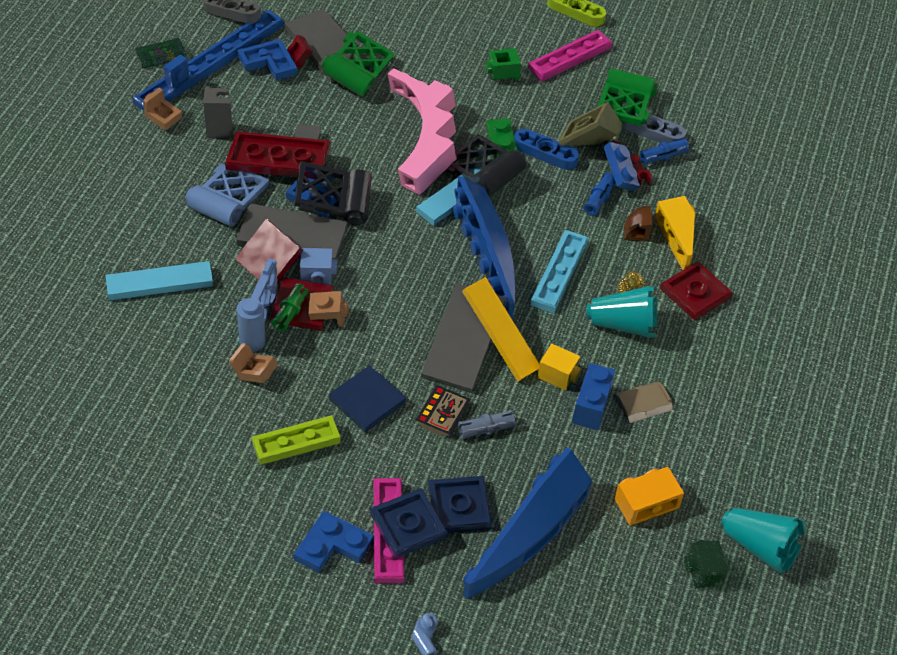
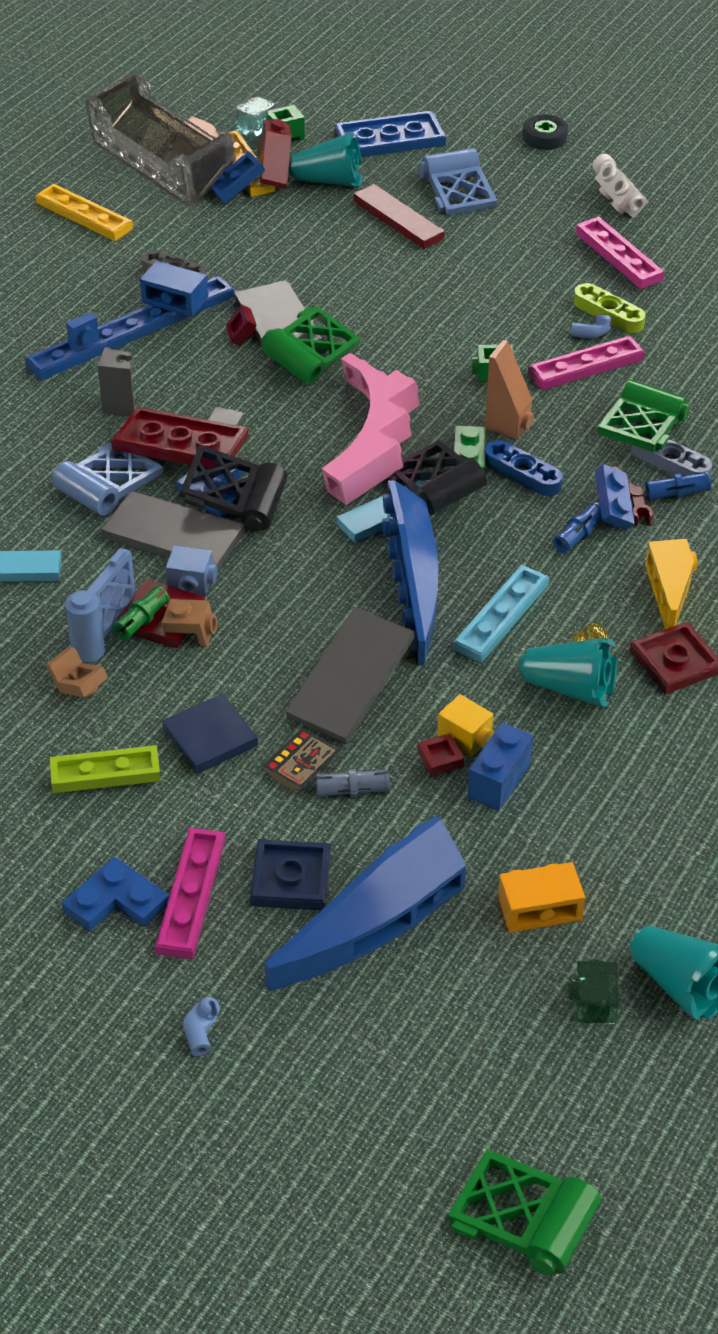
camera: 15 degrees right, 5 degrees down
(159, 52) = (62, 312): clear green tile -> none
(160, 110) = (52, 374): medium nougat bracket -> none
(238, 25) = (174, 288): none -> blue brick
(267, 244) = (140, 537): tile -> none
(269, 54) = (205, 325): blue plate -> none
(408, 523) = (215, 885): dark blue tile -> none
(501, 329) = (398, 668): yellow tile -> none
(524, 93) = (507, 395): none -> nougat slope
(546, 393) = (440, 755): none -> dark red plate
(568, 28) = (592, 331): none -> medium blue arm
(592, 127) = (589, 447): olive slope -> none
(638, 225) = (619, 570): reddish brown brick -> none
(644, 401) = (570, 783): dark tan piece -> none

